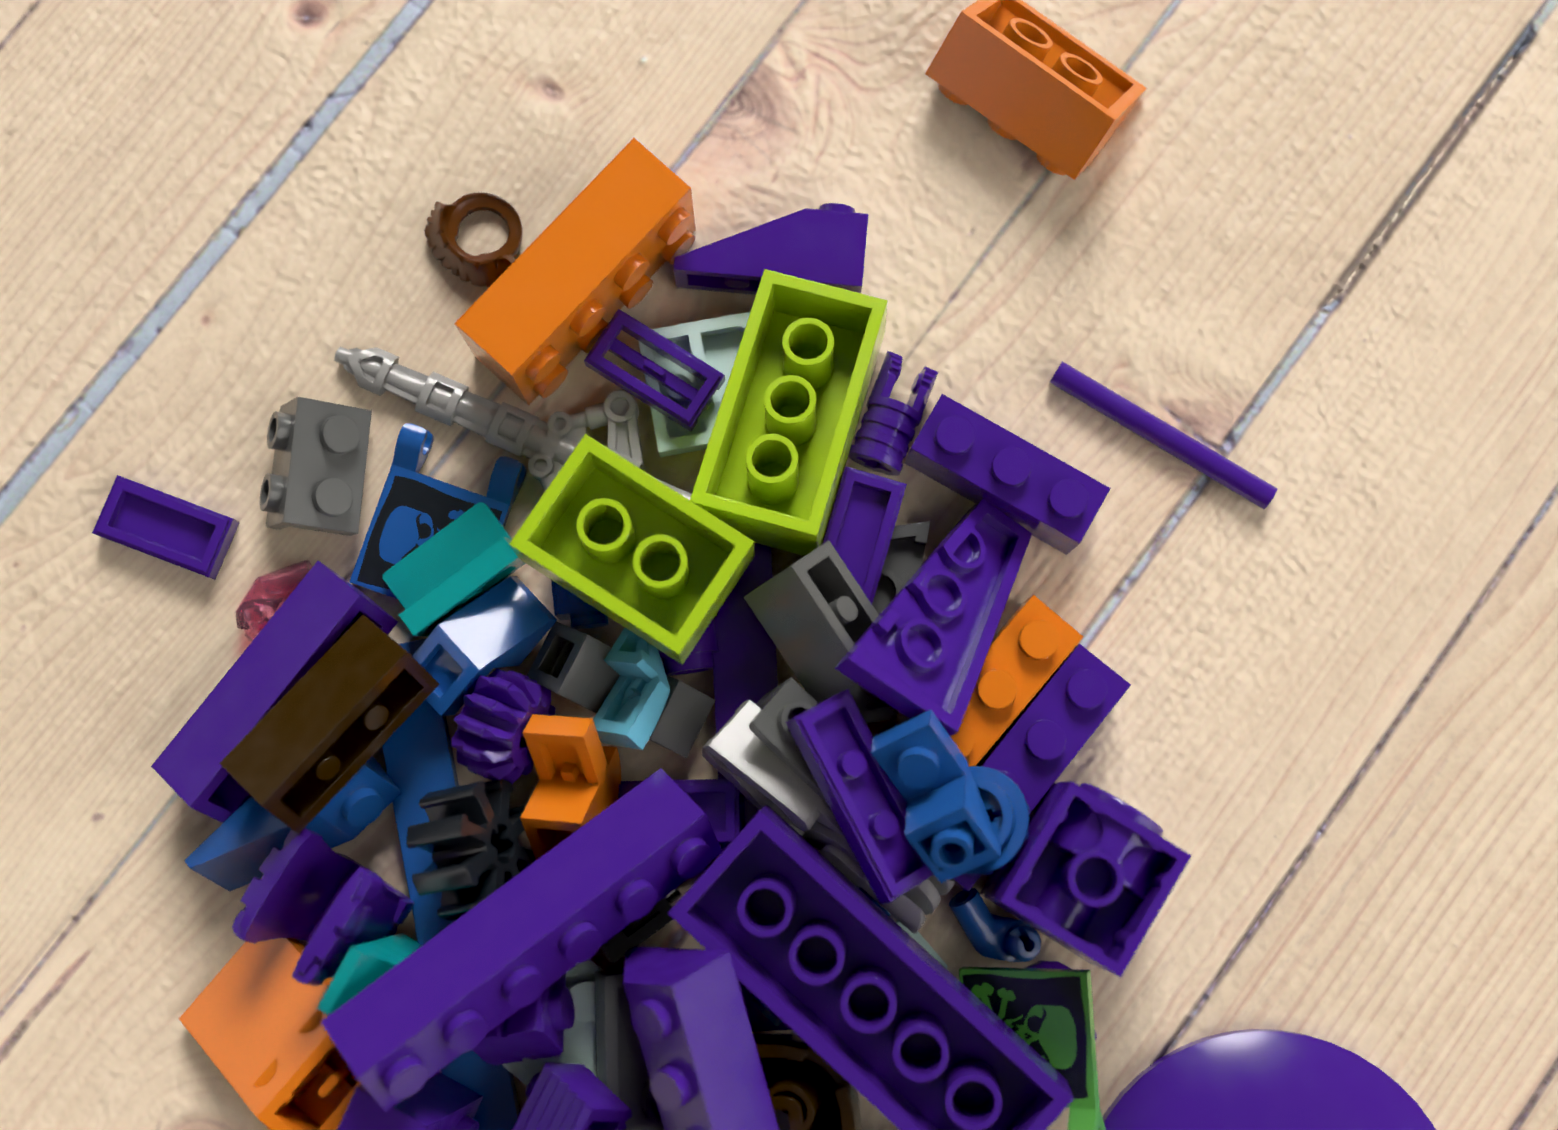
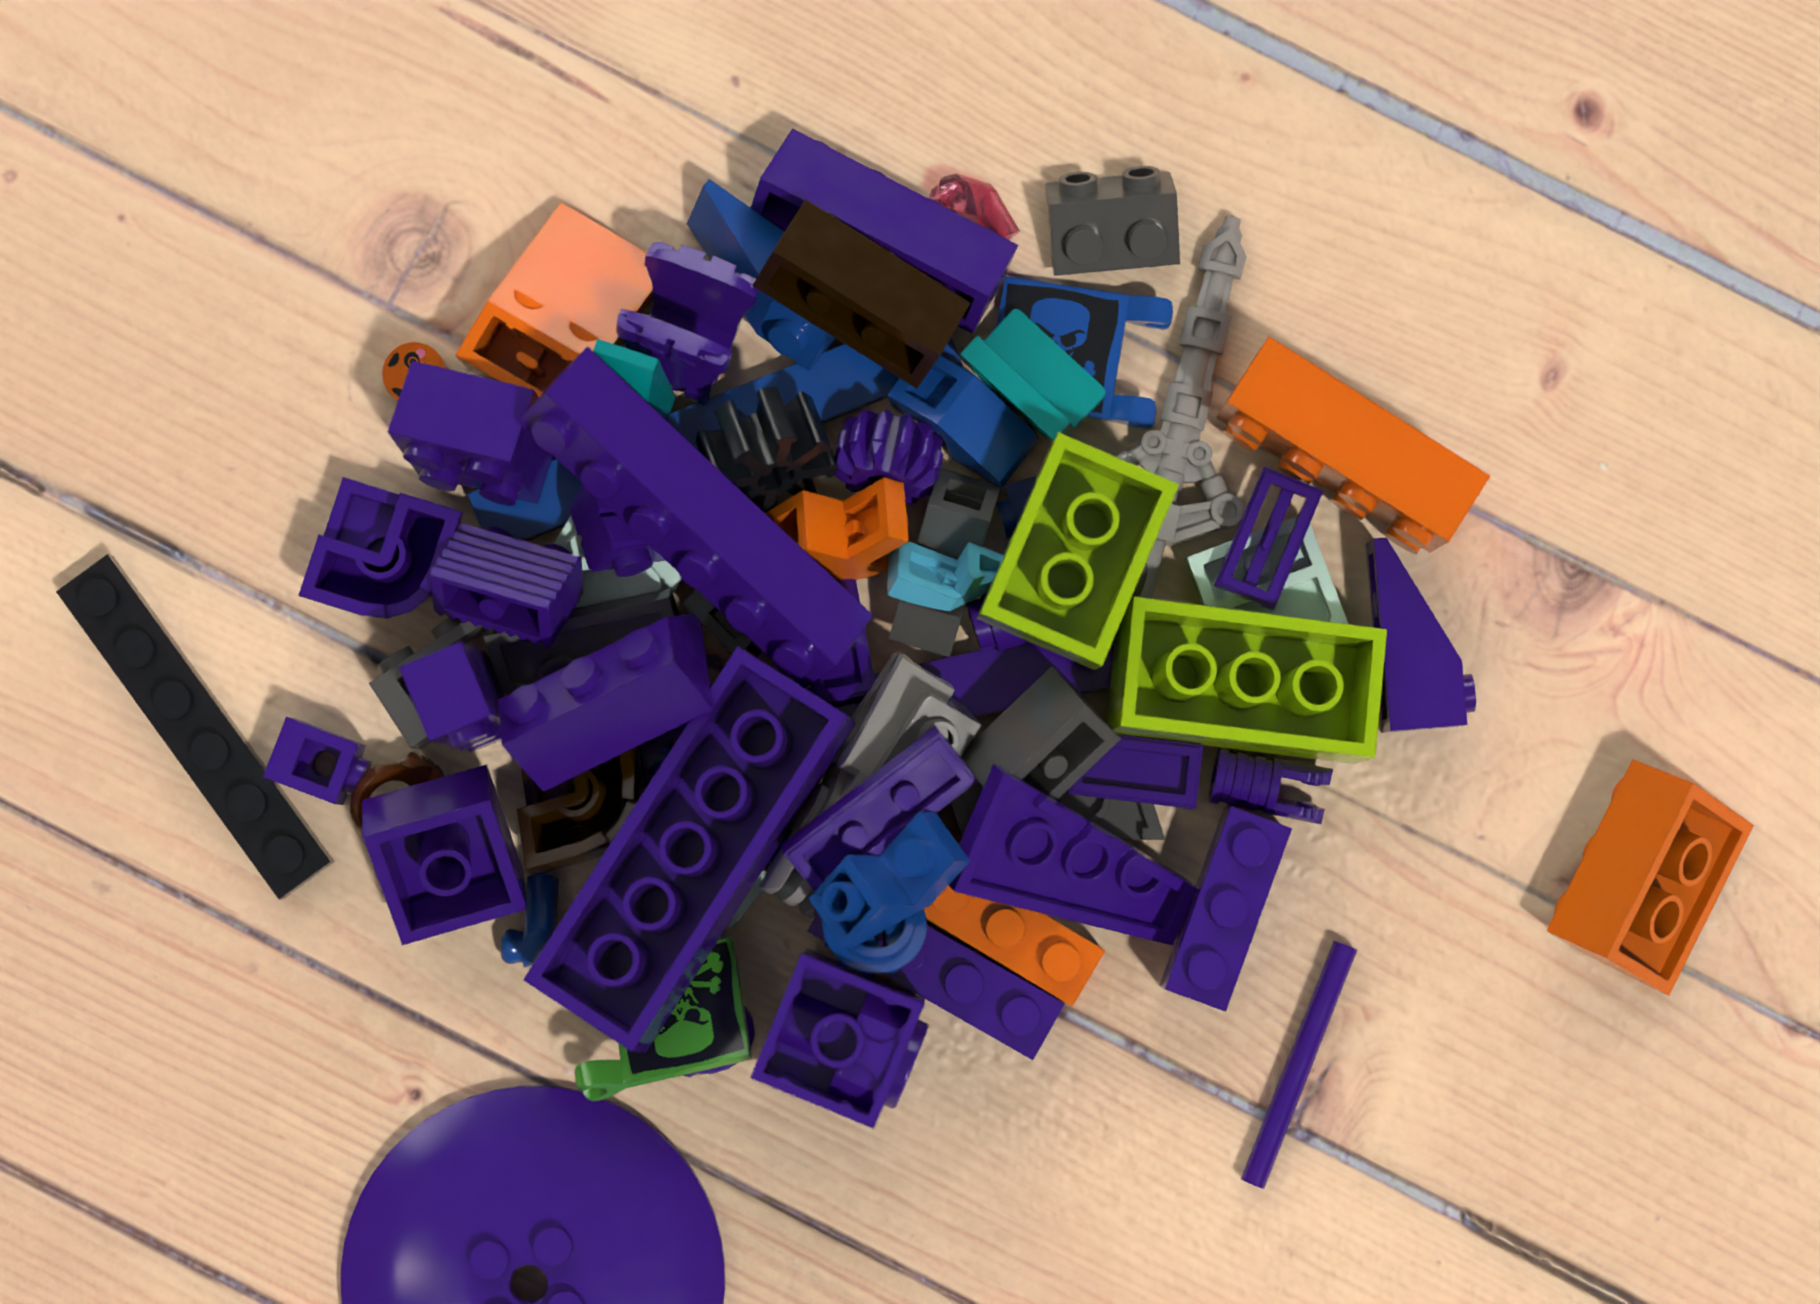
camera: 90 degrees right, 5 degrees up
(166, 527) = (1027, 86): dark purple tile -> none
(444, 231) = (1376, 297): reddish brown piece -> none
(994, 934) = (770, 967): blue arm -> none

